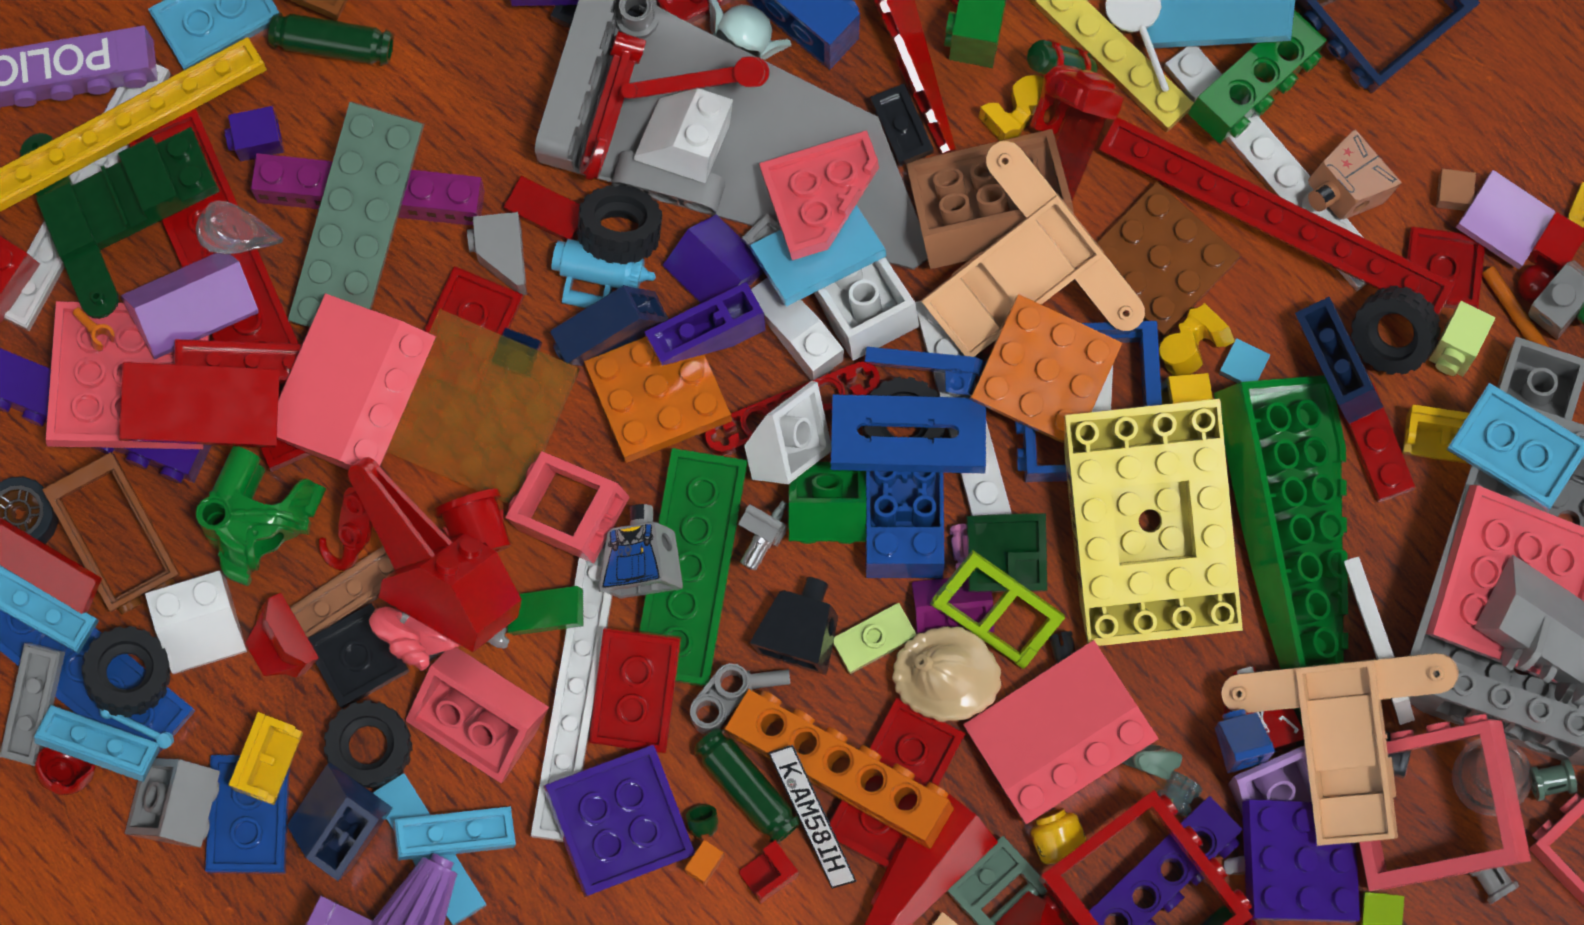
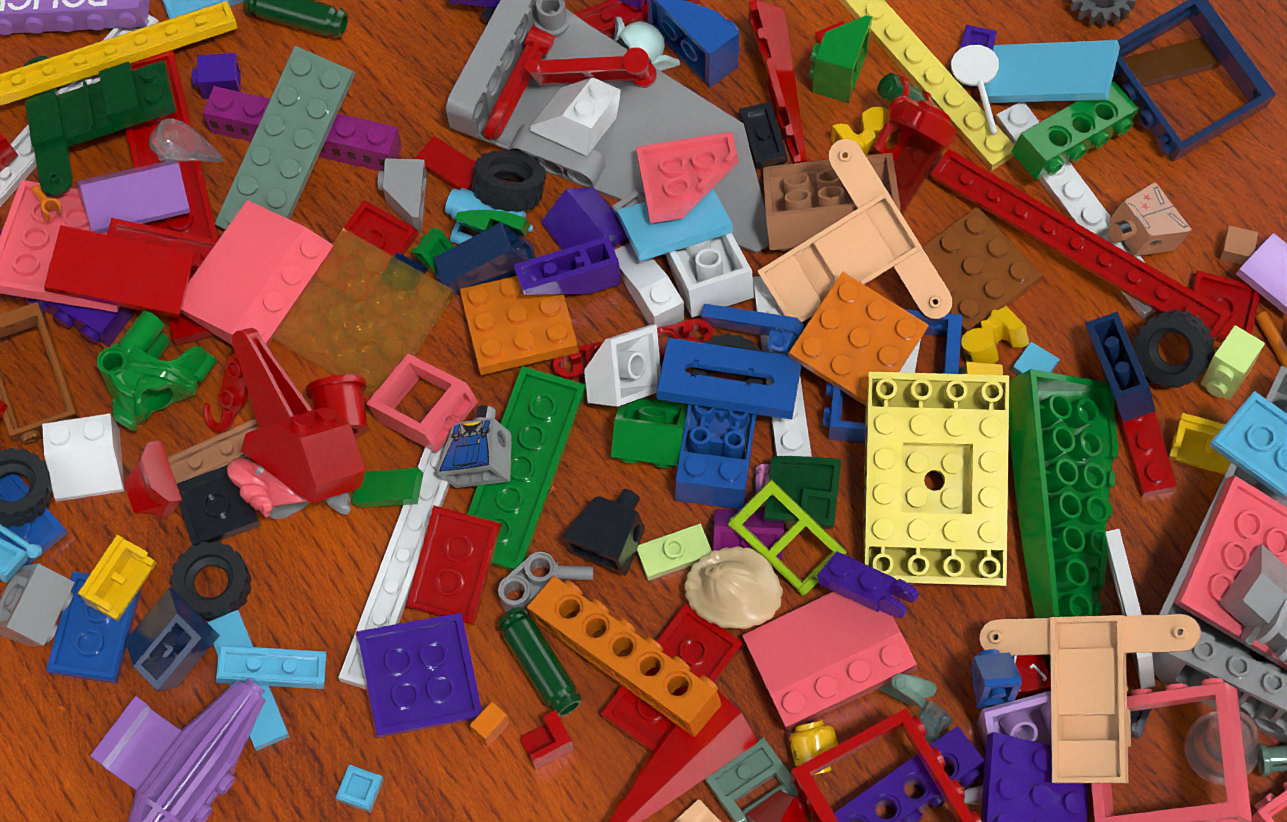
camera: 10 degrees right, 10 degrees down
(476, 713) = (310, 566): coral slope -> none
(545, 316) = (431, 246): none -> green tile
(602, 281) = (484, 219): none -> green slope
(702, 820) = (494, 687): dark green hinge -> none
(767, 531) = (591, 444): piece -> none
(812, 816) = (592, 695): sticker -> none
(1092, 655) = (866, 585): none -> dark purple hinge

